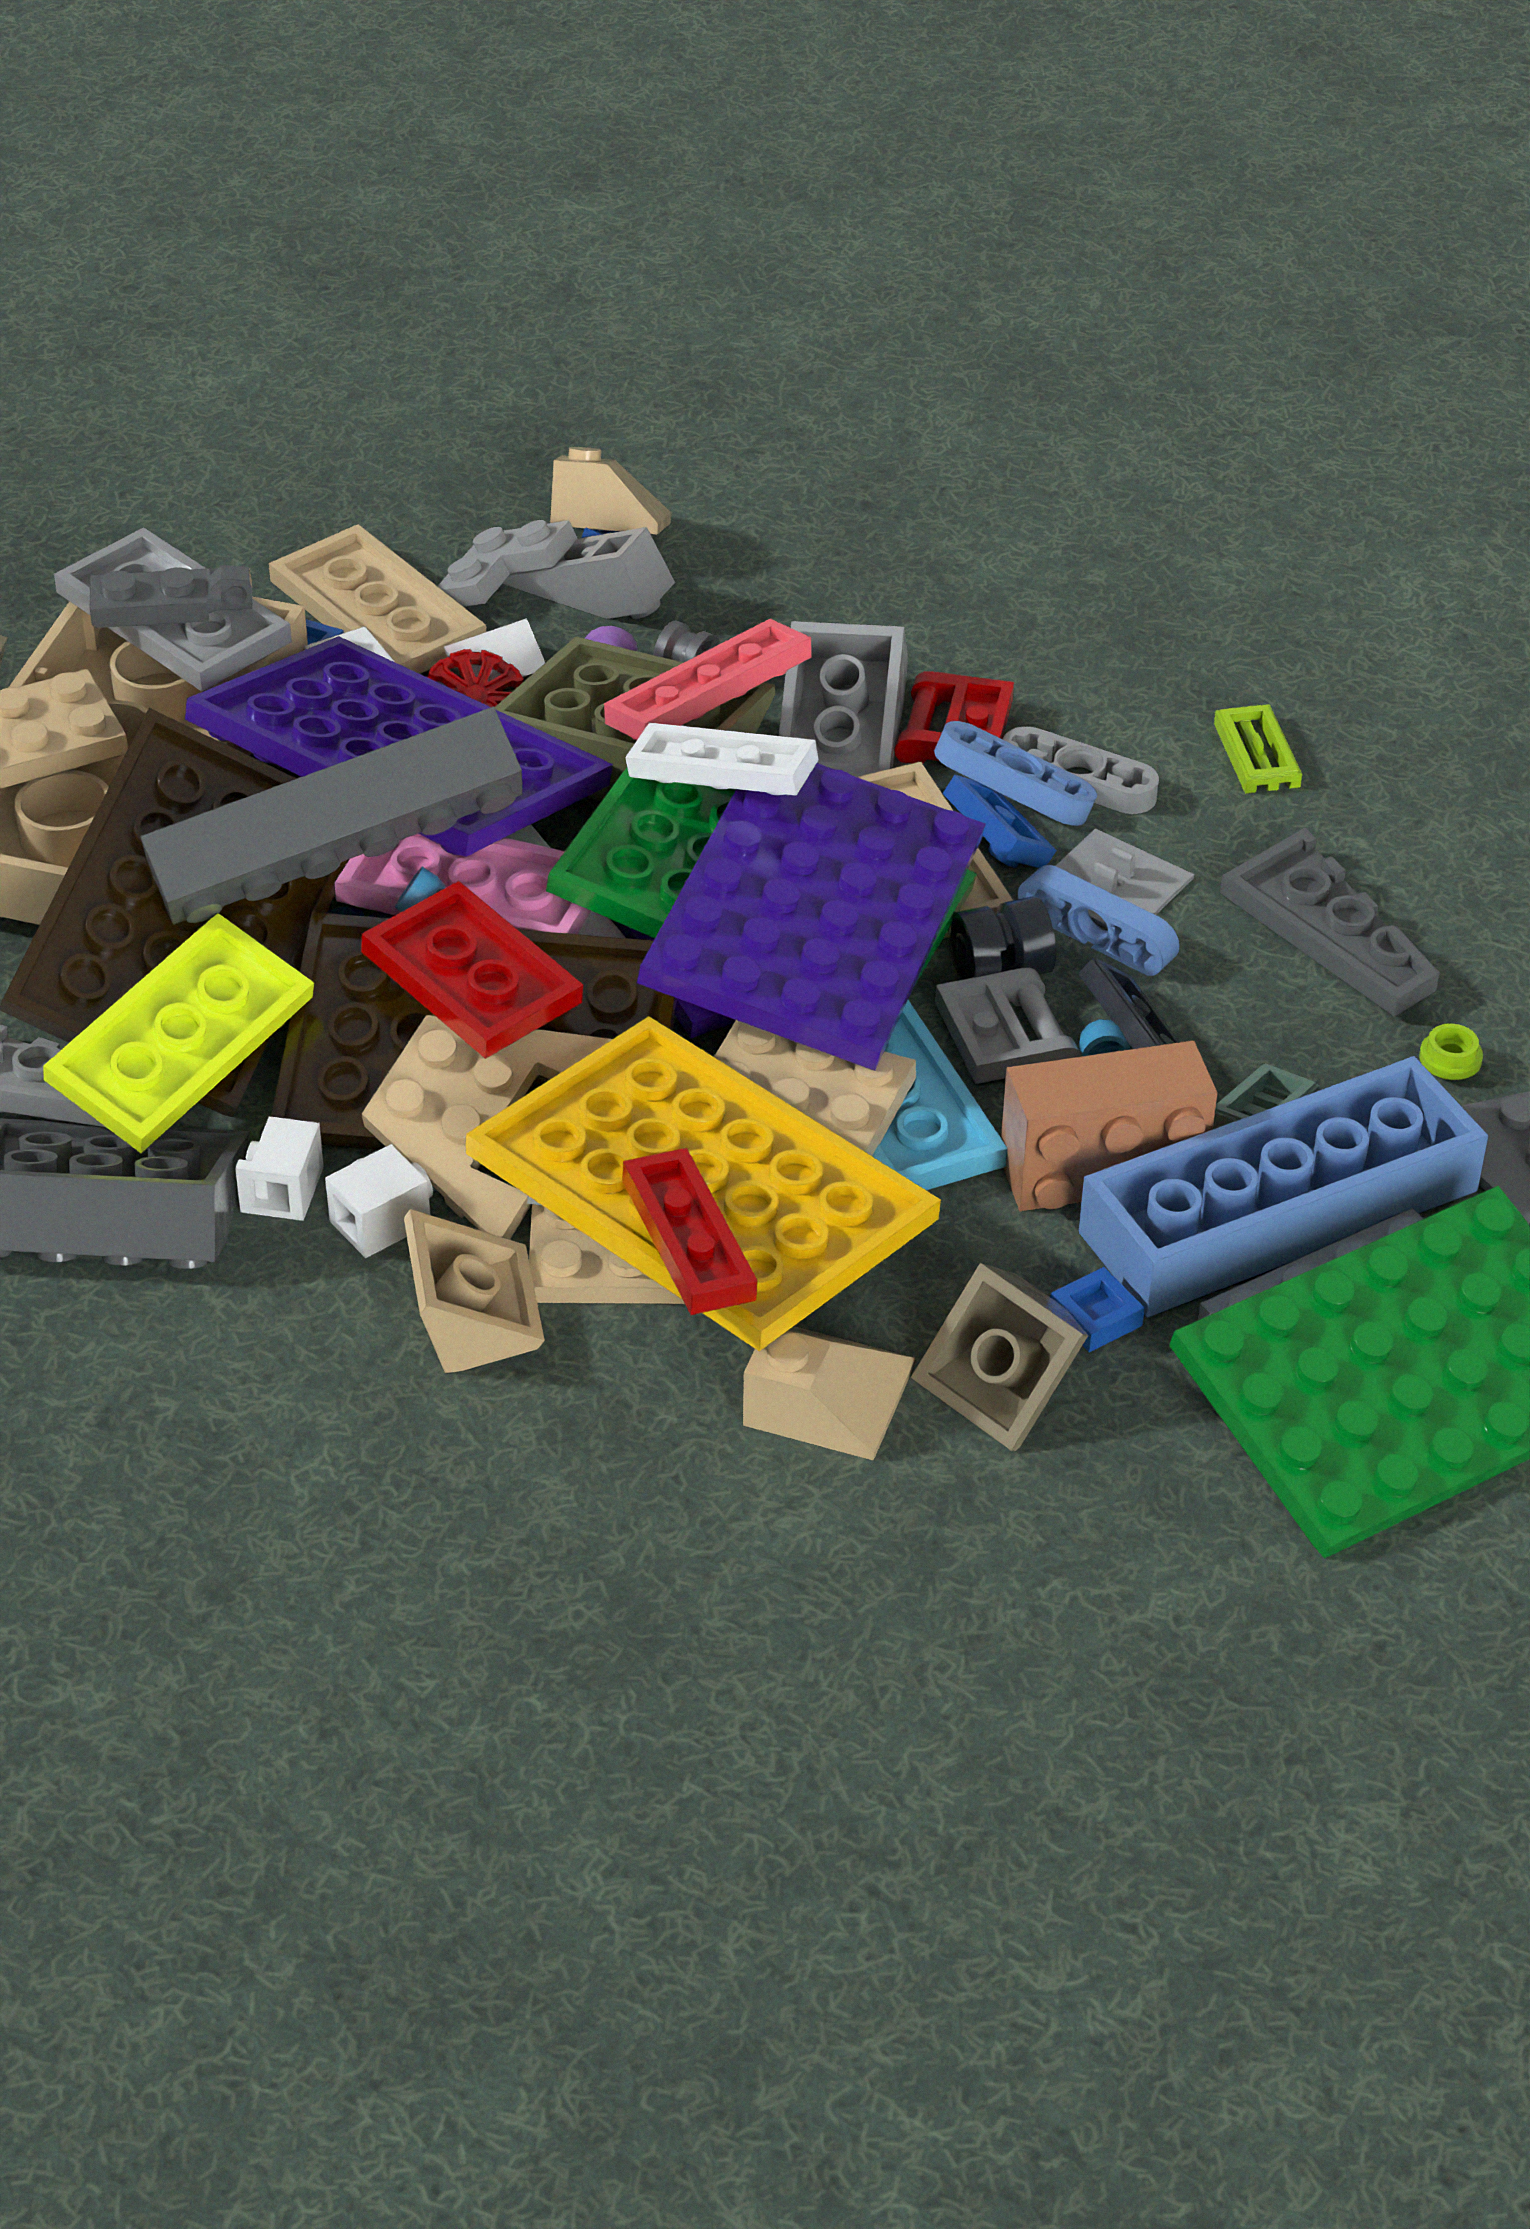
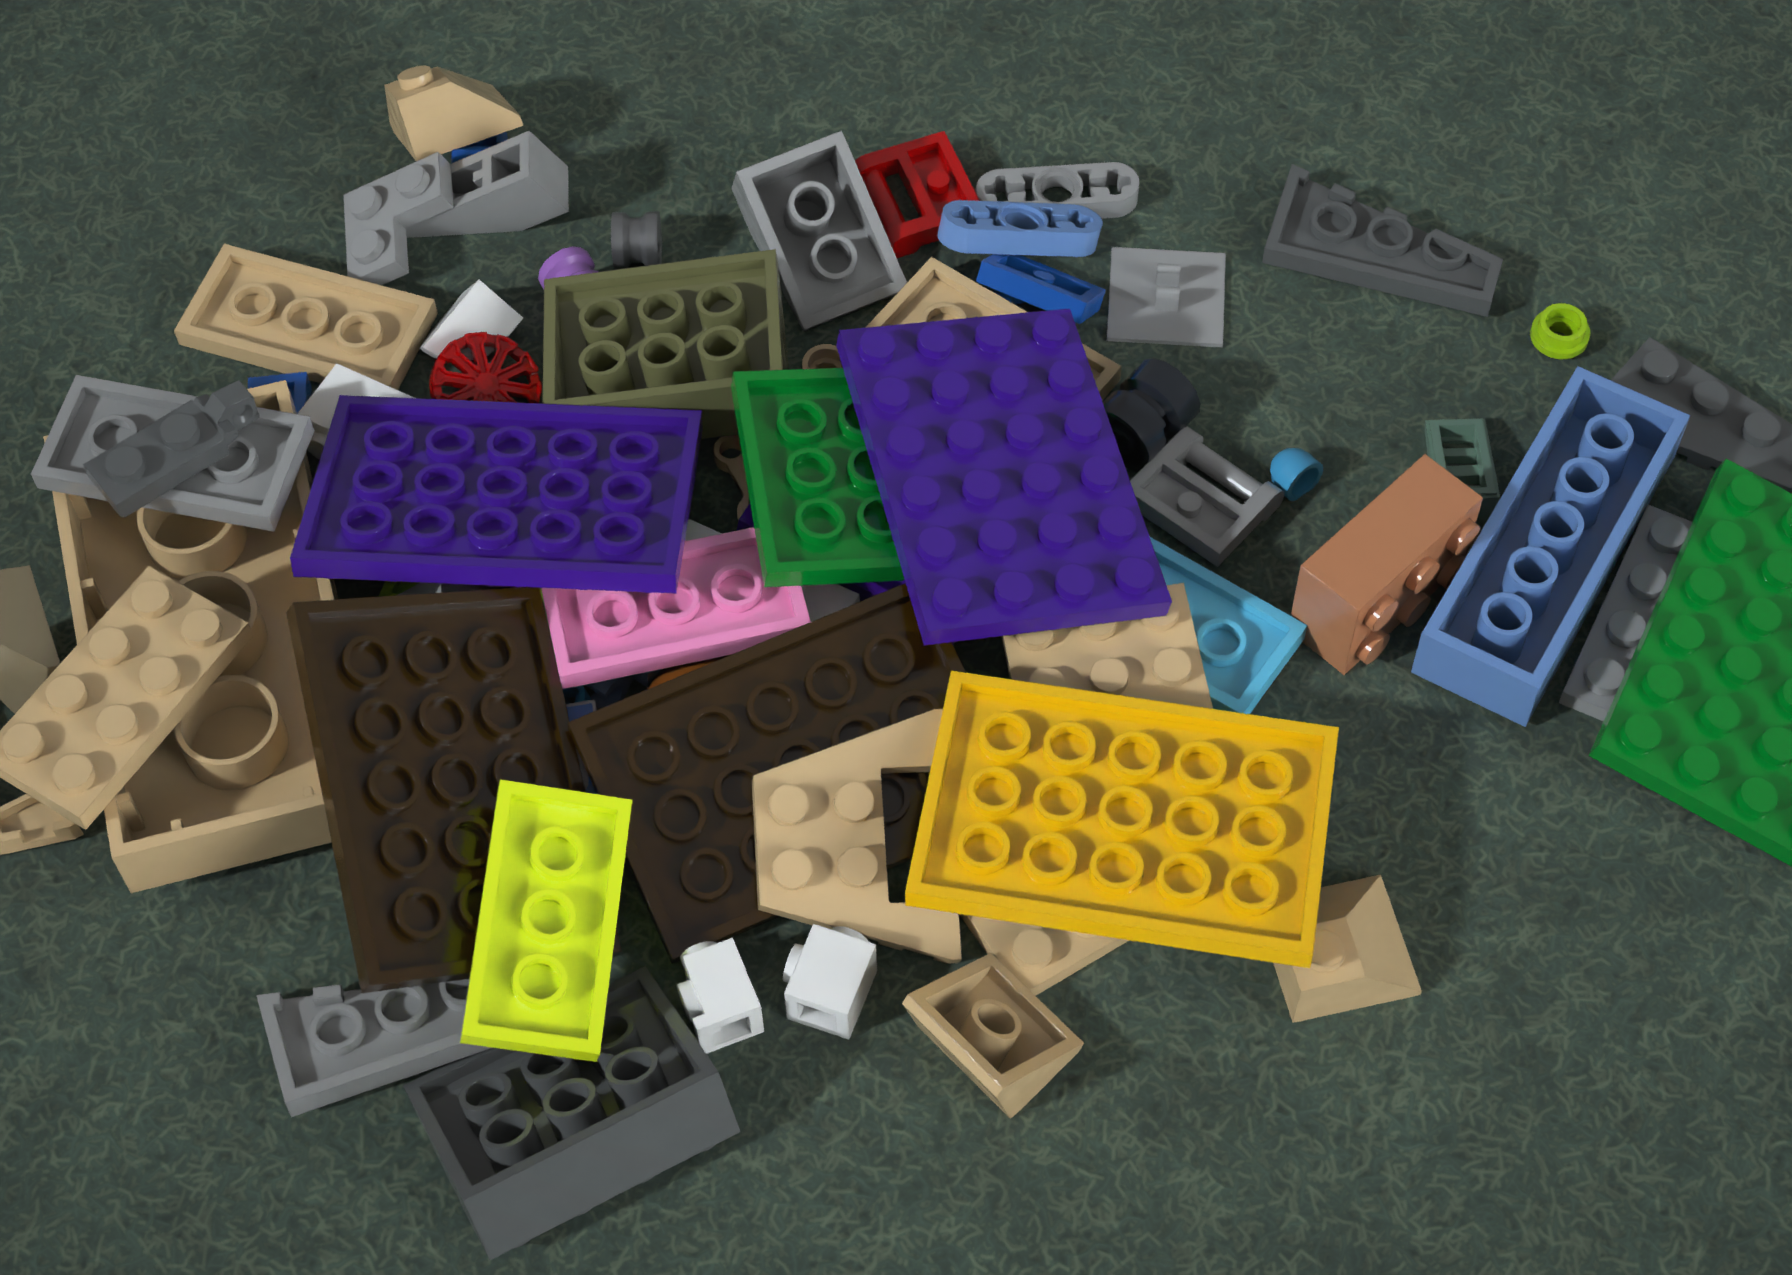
camera: 30 degrees left, 15 degrees up
(333, 816) = (552, 629): dark grey brick -> none
(419, 888) = (660, 654): dark azure hinge -> none
(472, 969) = (772, 711): red plate -> none
(689, 1231) = (1190, 892): red plate -> none
(709, 679) = (728, 282): coral plate -> none
(722, 759) = (838, 373): white plate -> none
(1000, 1354) = (1466, 837): dark tan slope -> none
(1101, 1307) = (1490, 745): blue plate -> none
(1127, 1005) = (1318, 440): black tile -> none
(1132, 934) = (1231, 349): medium blue beam -> none
(1264, 774) = (1174, 101): lime tile -> none

